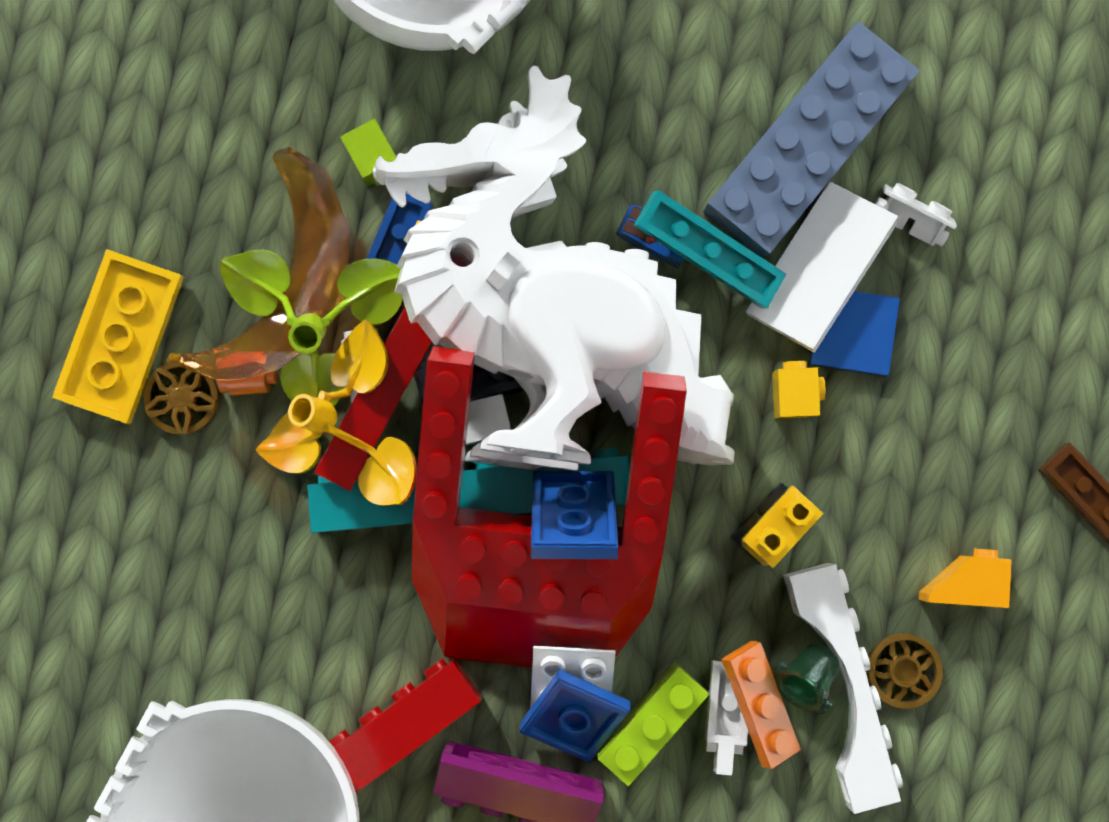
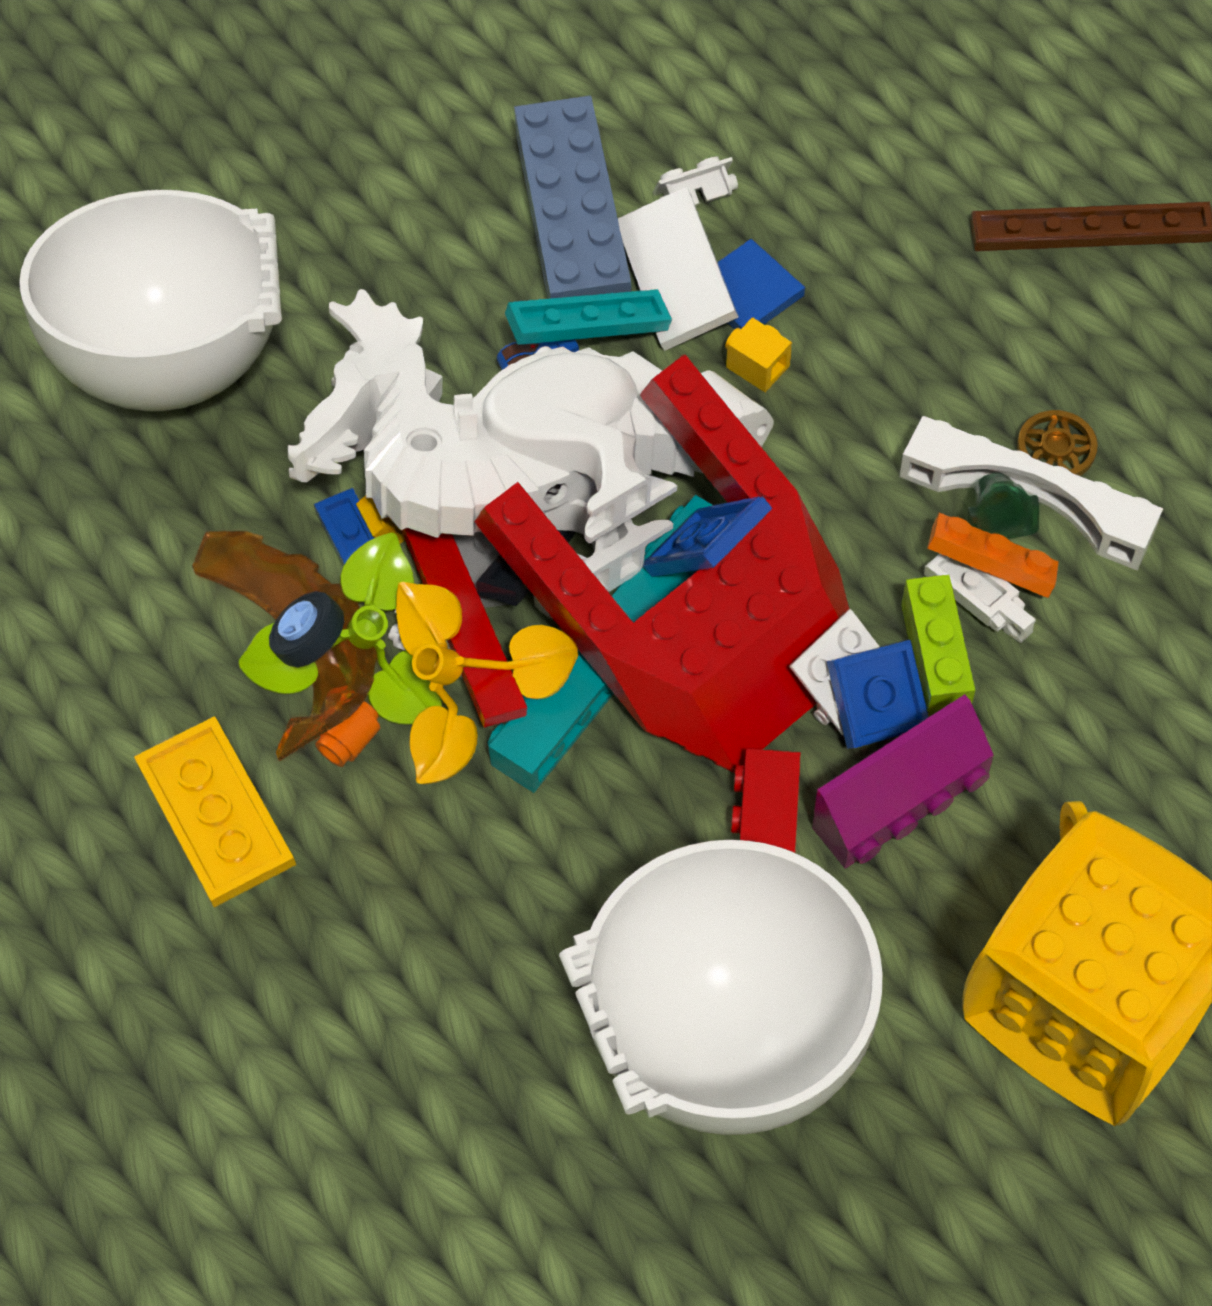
camera: 45 degrees left, 25 degrees down
(181, 399) = (314, 805): pearl gold wheel -> none
(276, 288) = (306, 629): none -> black wheel
(366, 146) = (267, 502): lime brick -> none
(783, 523) = (852, 432): yellow hips -> none
(972, 581) = (1026, 345): light orange slope -> none

